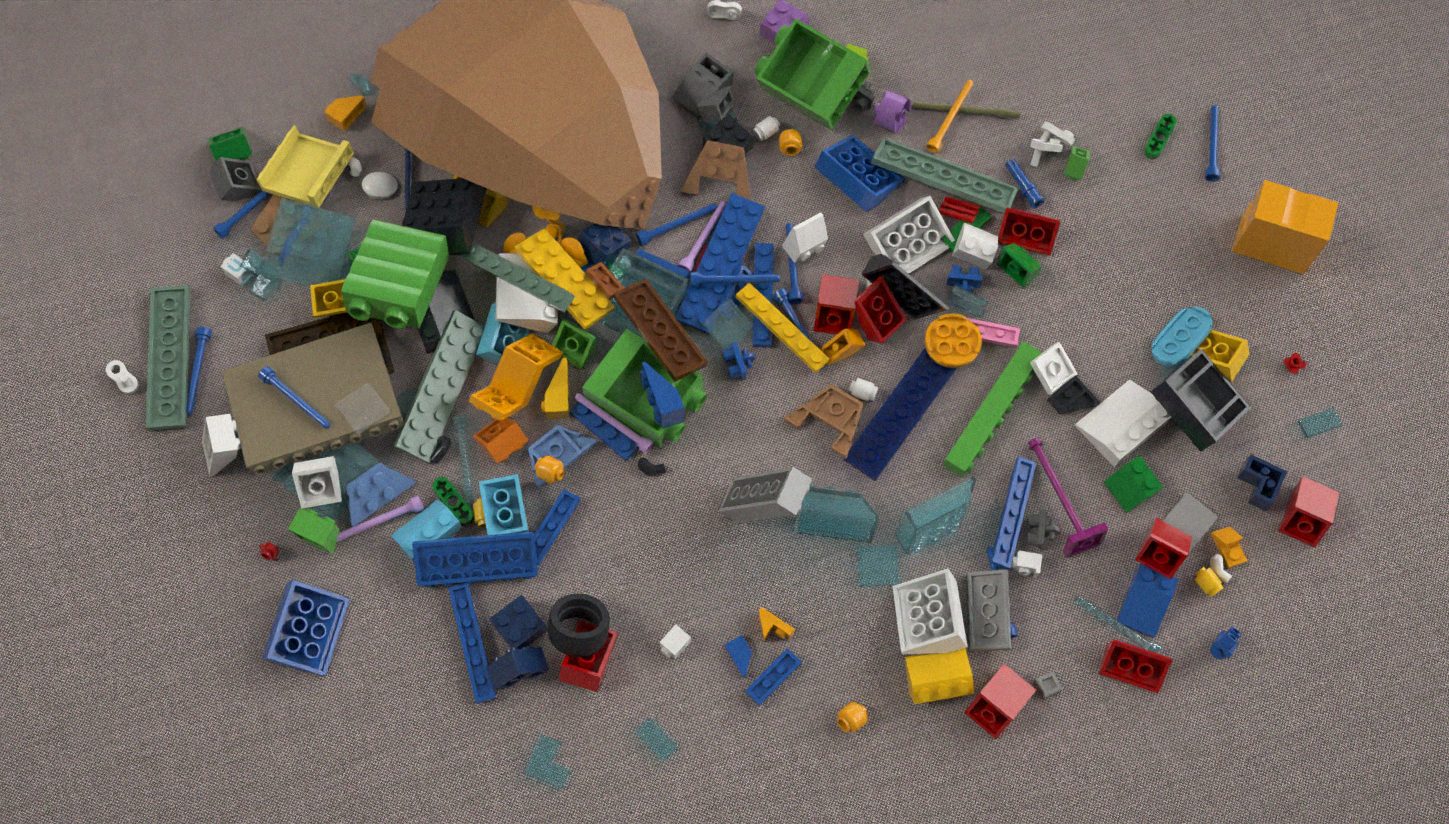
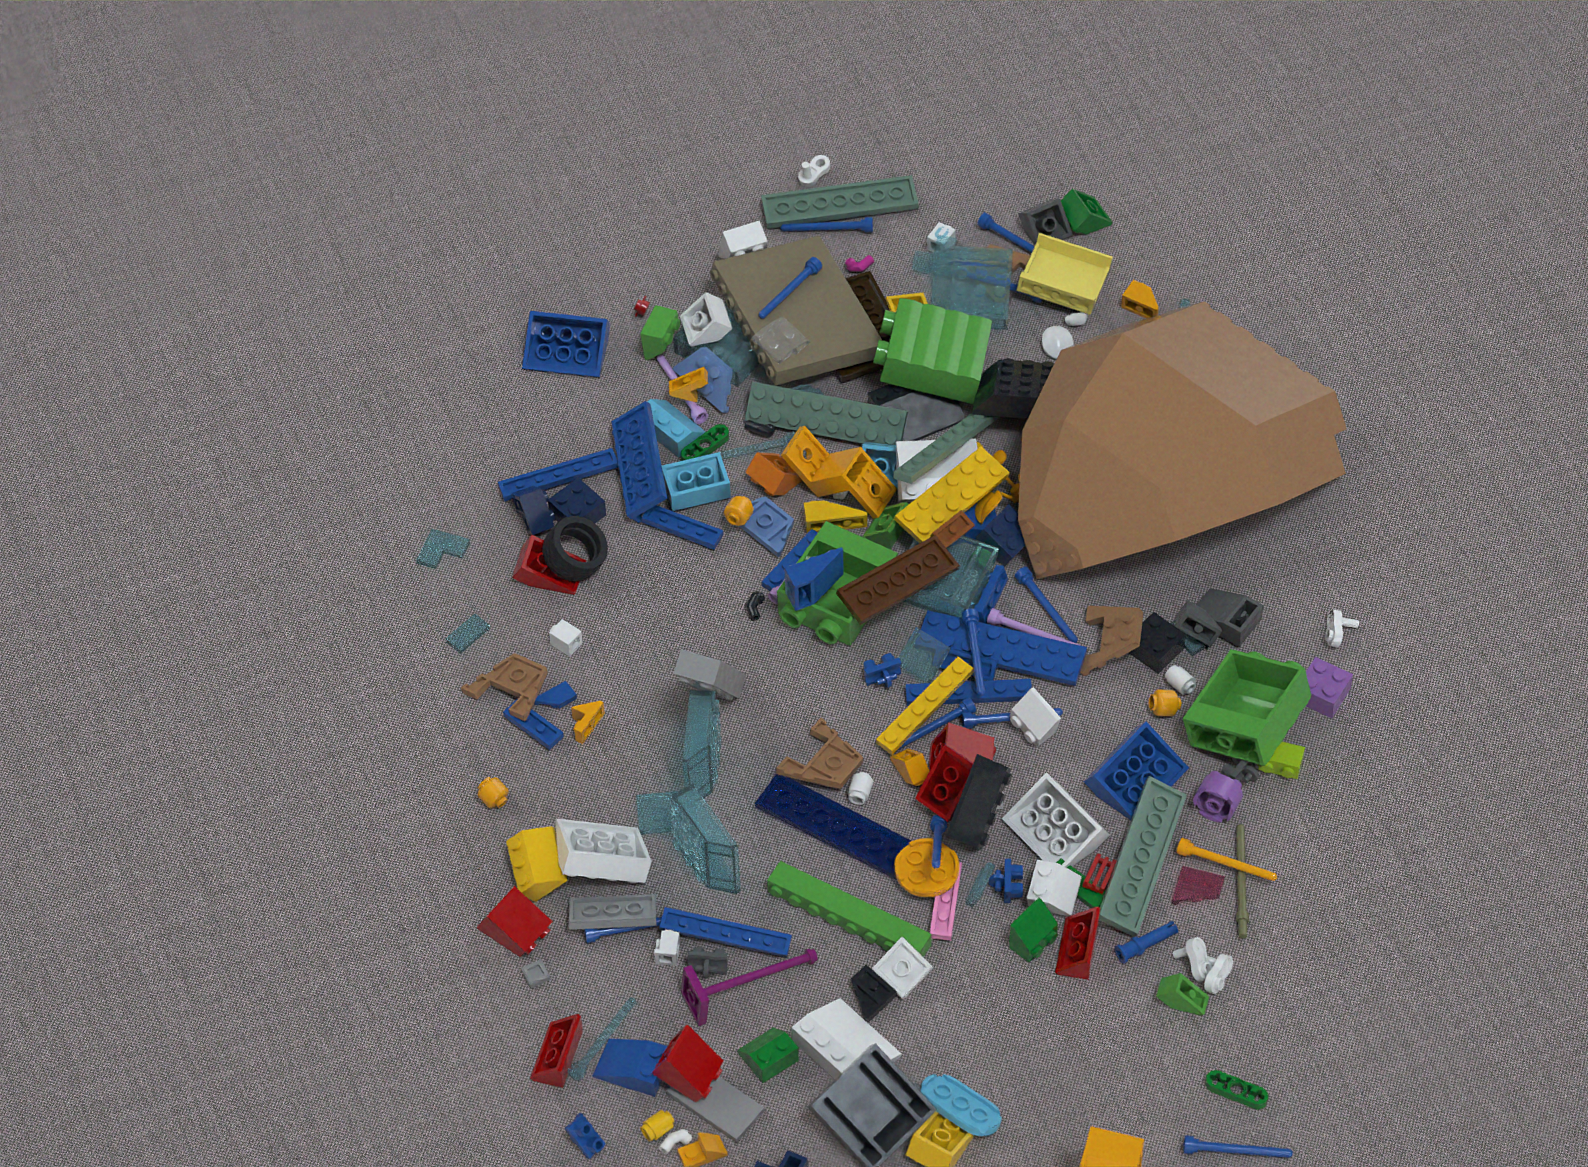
camera: 90 degrees right, 15 degrees down
(254, 345) = (853, 266): none -> dark pink arm
(385, 508) = (686, 386): none -> light orange slope
(719, 689) = (515, 676): none -> medium nougat wing
(907, 328) = (938, 826): none -> blue piece
(969, 142) = (1197, 885): none -> clear pink wing

